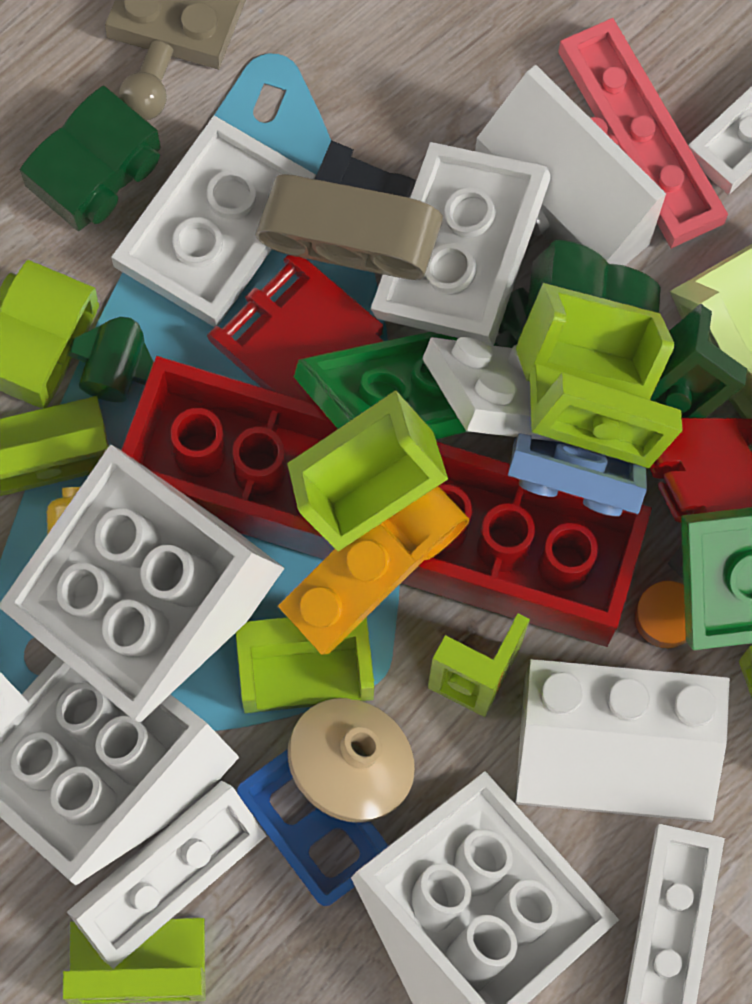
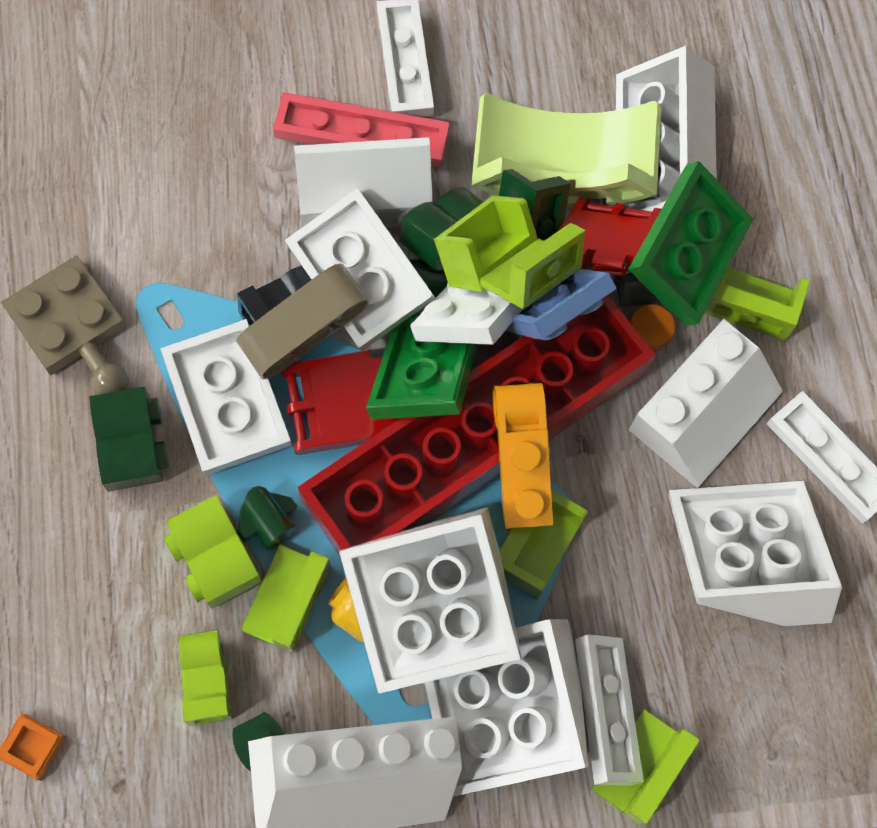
camera: 55 degrees left, 0 degrees up
(297, 839) = (632, 588): blue piece -> none
(337, 777) = (613, 571): tan dish -> none
(366, 471) = (478, 415): lime panel -> none
(471, 676) = (627, 444): lime panel -> none

